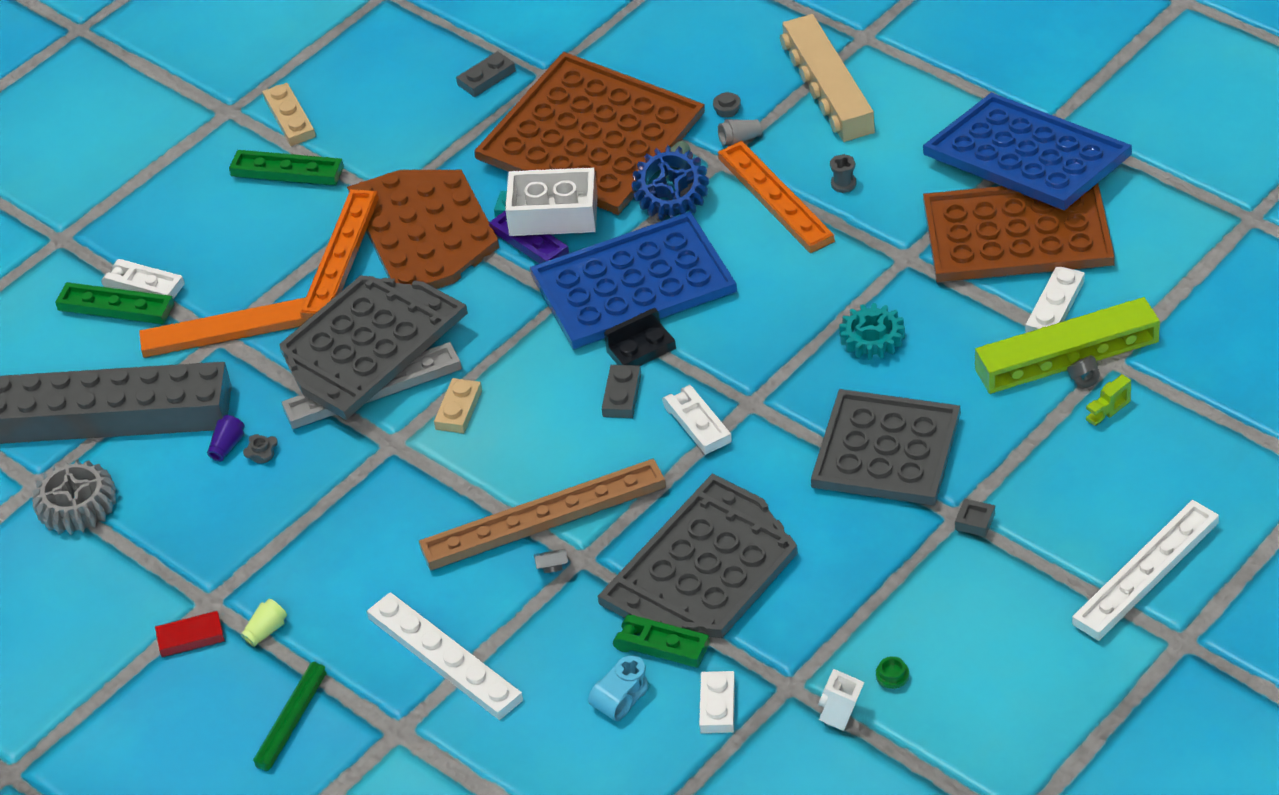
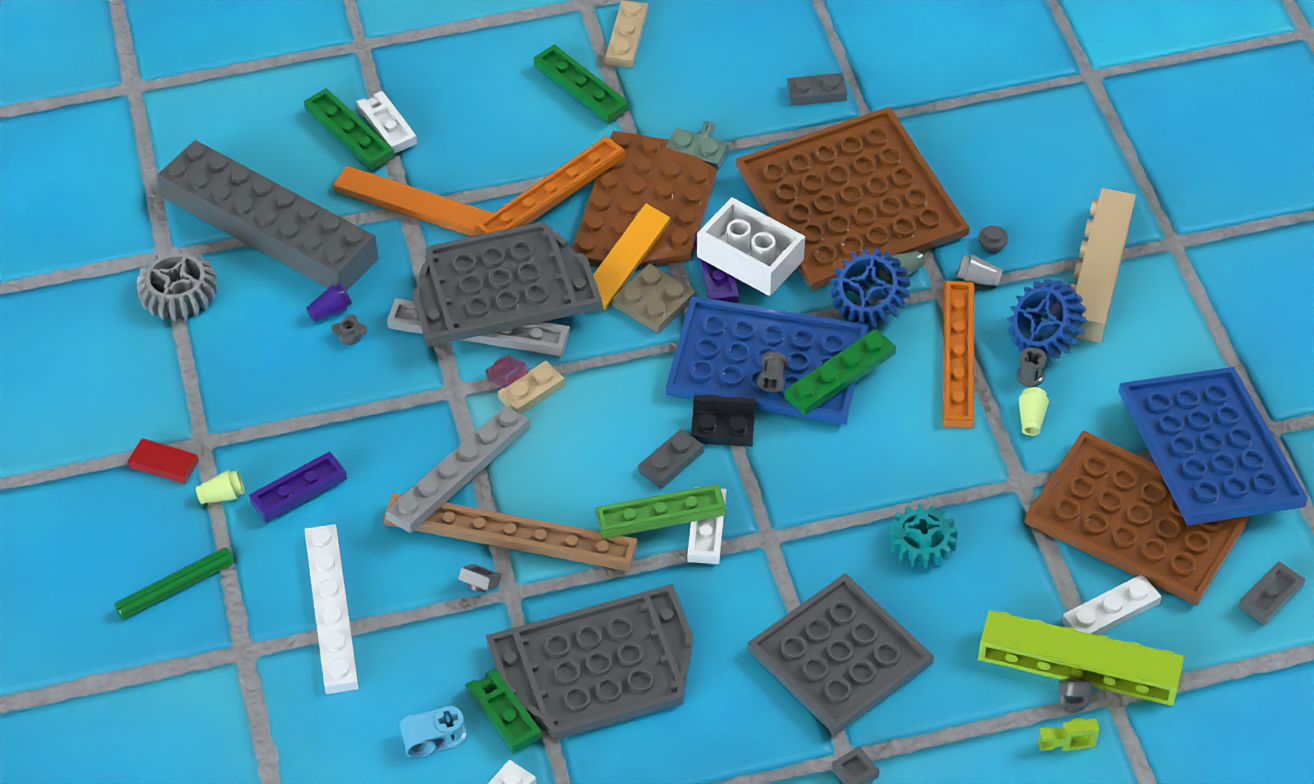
camera: 30 degrees right, 5 degrees up
(330, 584) = (297, 486): none -> dark purple plate
(427, 403) = (506, 371): none -> clear pink plate
(429, 159) = (700, 145): none -> sand green plate
(449, 256) = (629, 252): none -> light orange tile
(457, 493) = (457, 469): none -> light grey plate
(497, 288) = (653, 298): none -> dark tan plate
(652, 280) = (772, 372): none -> dark grey bush
(654, 427) = (660, 511): none -> bright green tile
(702, 254) = (839, 372): none -> green plate
(825, 120) = (1047, 301): none -> blue gear
(870, 201) = (1032, 408): none -> yellowish green cone
(1159, 225) = (1271, 593): none -> dark grey plate

